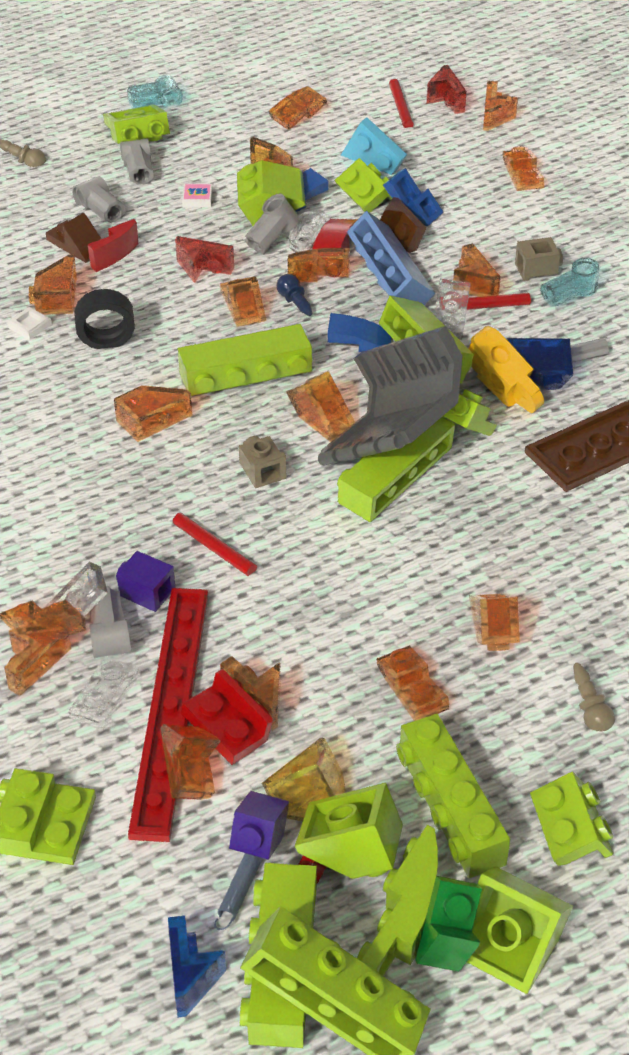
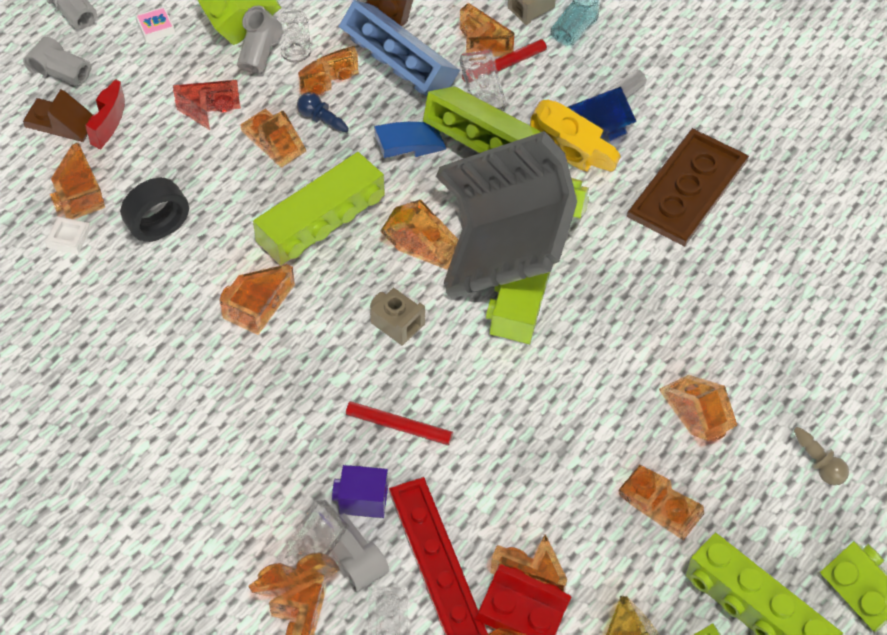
camera: 25 degrees left, 10 degrees up
(334, 234) = (324, 31): red slope -> none

